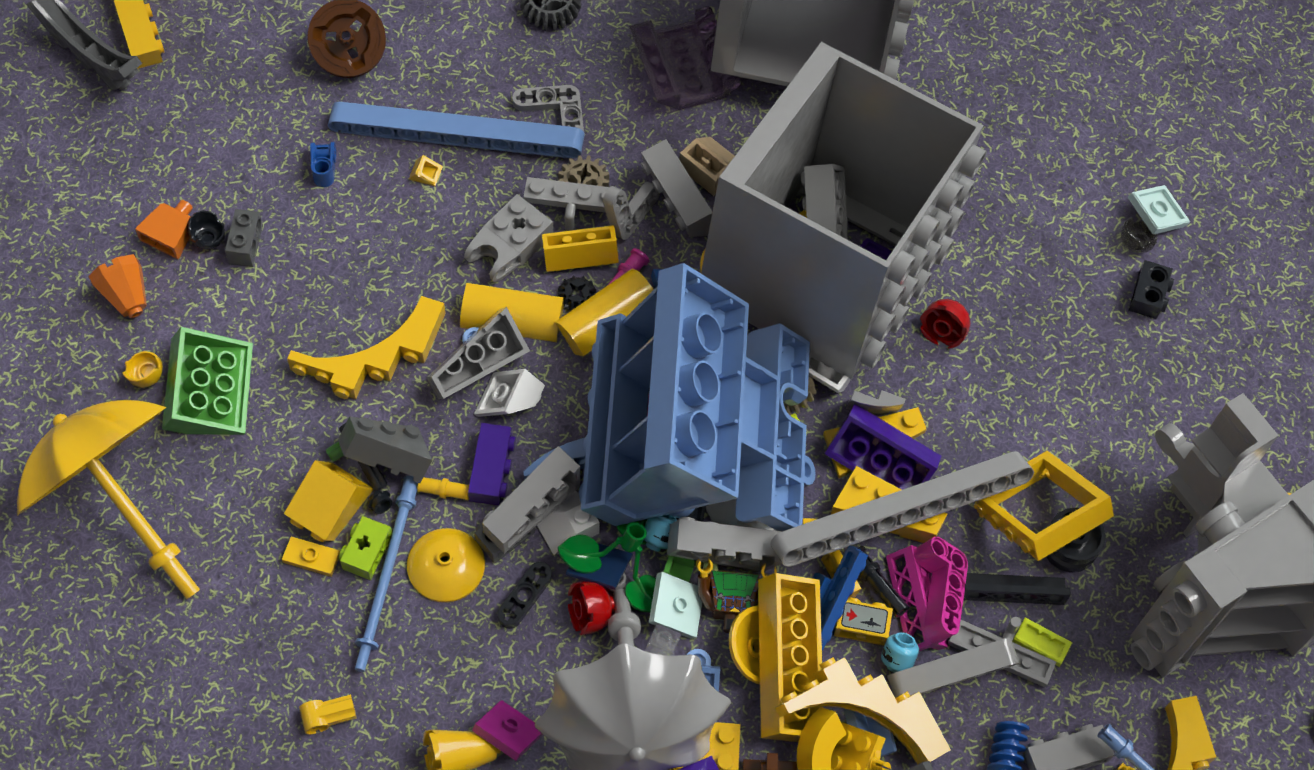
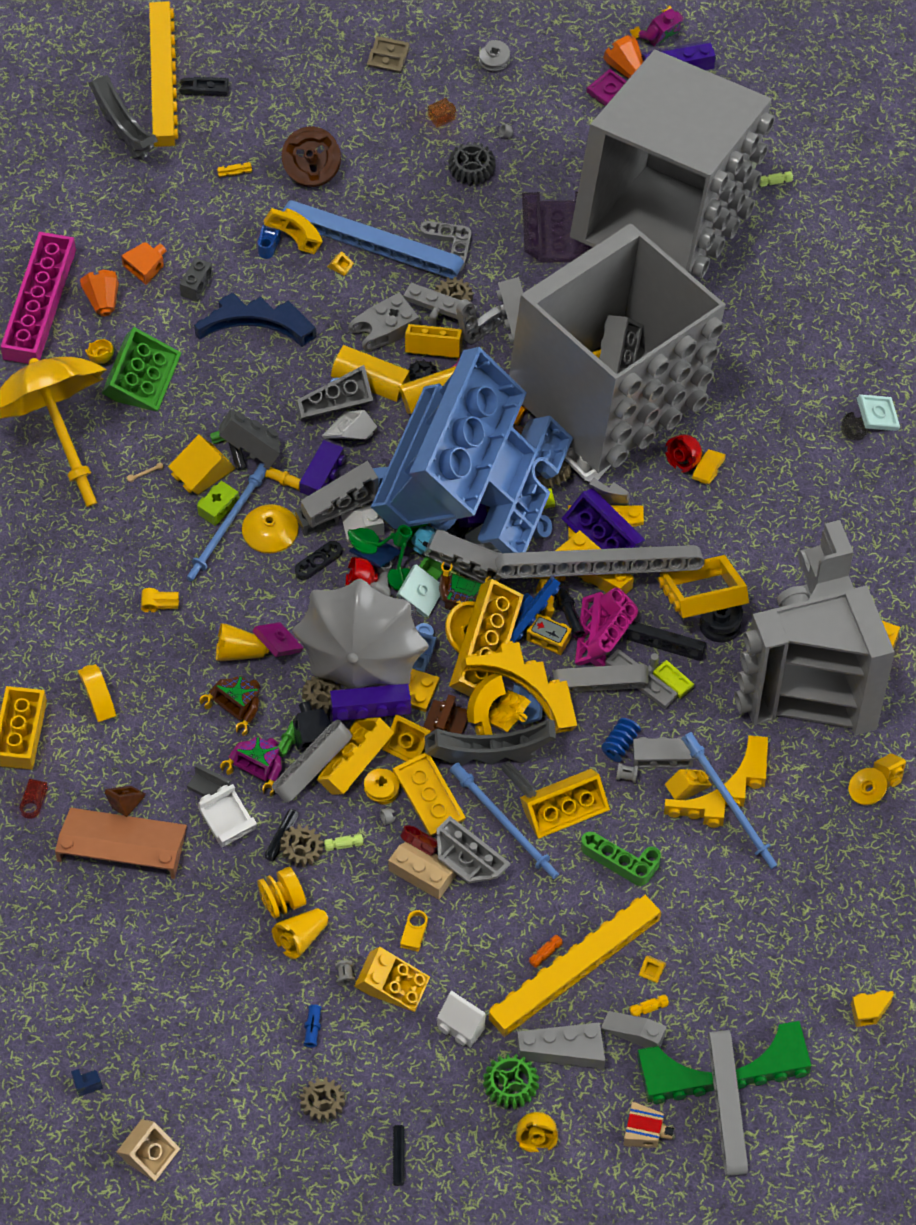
camera: 20 degrees right, 5 degrees down
(38, 316) = (38, 297): none -> dark pink brick
(203, 224) = (170, 268): black hair -> none
(236, 540) = (131, 478): none -> tan hinge
(250, 76) = (234, 169): none -> yellow axle
(311, 556) = (178, 500): yellow plate -> none
(339, 264) = (258, 313): none -> dark blue arch
(348, 372) = (266, 384): yellow arch -> none
(357, 136) = (297, 227): none -> yellow arch
(380, 501) = (237, 476): black plate -> none
(899, 652) = (567, 657): medium azure head -> none
(981, 333) = (708, 466): none -> yellow slope
(1148, 289) = (847, 464): black brick -> none

